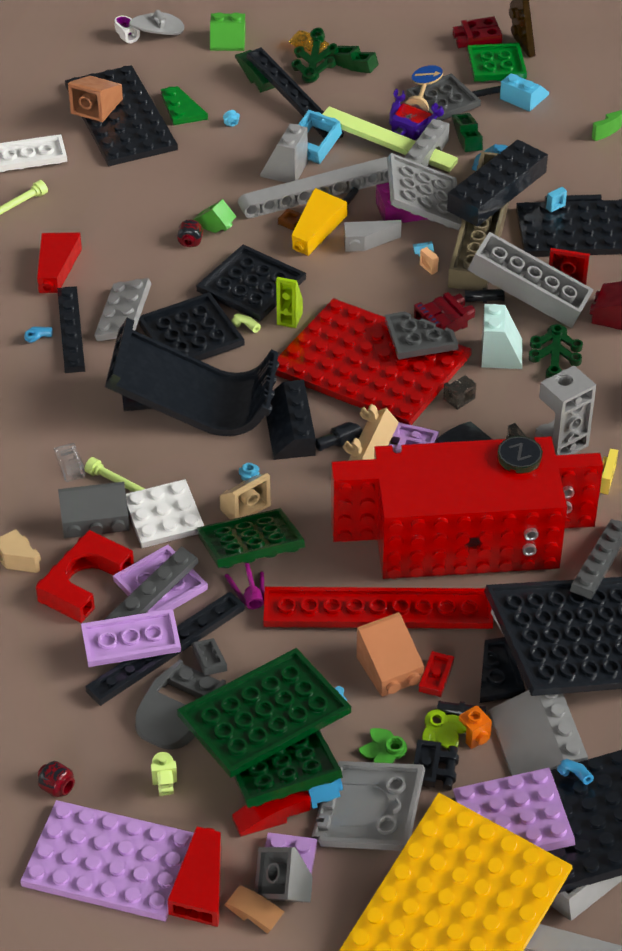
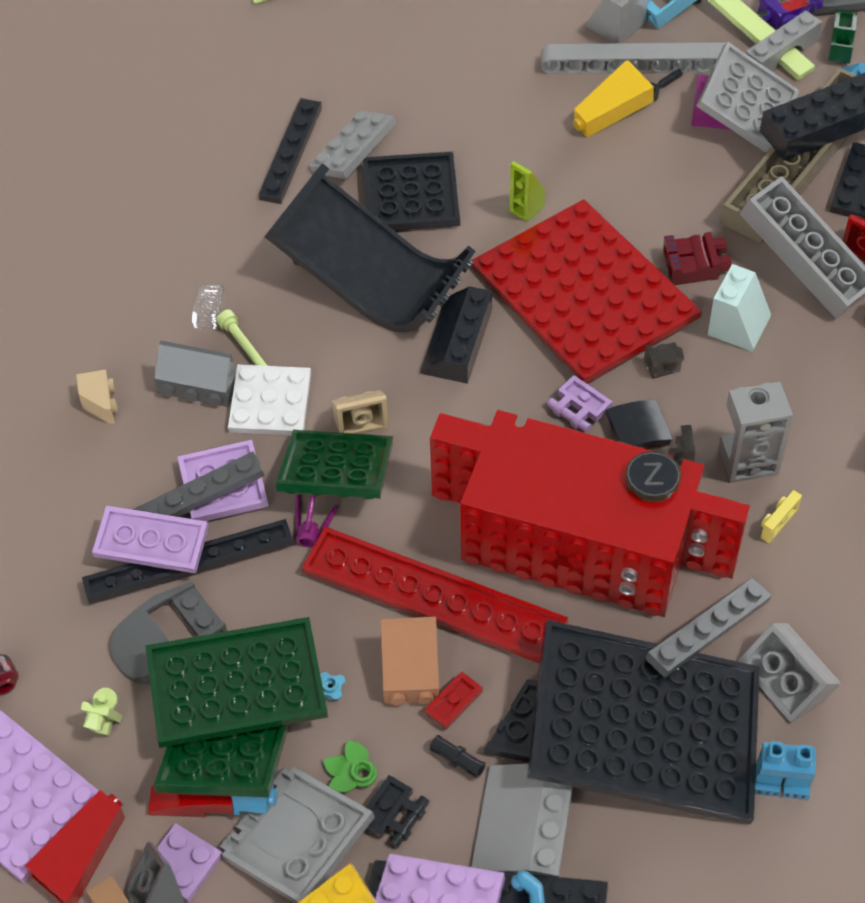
camera: 25 degrees right, 10 degrees up
(36, 333) = (253, 144): dark azure arm -> none
(56, 259) = (316, 64): red slope -> none
(89, 552) = (168, 420): red arch -> none
(190, 233) = (470, 74): head -> none
(209, 656) = (225, 589): dark grey plate -> none
(216, 217) = (507, 63): bright green slope -> none
(246, 320) = (478, 197): yellowish green arm -> none
(248, 281) = (496, 142): black plate -> none
(248, 470) = (384, 385): medium azure plate -> none
(289, 219) = (585, 86): reddish brown plate -> none
(339, 435) = (501, 370): black arm -> none
(370, 234) = (662, 132): light grey slope -> none
(376, 432) = (532, 388): tan brick -> none
(417, 247) = (715, 168): medium azure plate -> none
(418, 337) = (645, 278): dark grey plate -> none
(429, 260) = (714, 185): light nougat plate -> none
(446, 731) = (426, 776): lime plate -> none
(477, 726) = (458, 783): orange bracket -> none
(484, 295) = (752, 246): black pin -> none
(557, 334) = (813, 321): dark green plant -> none

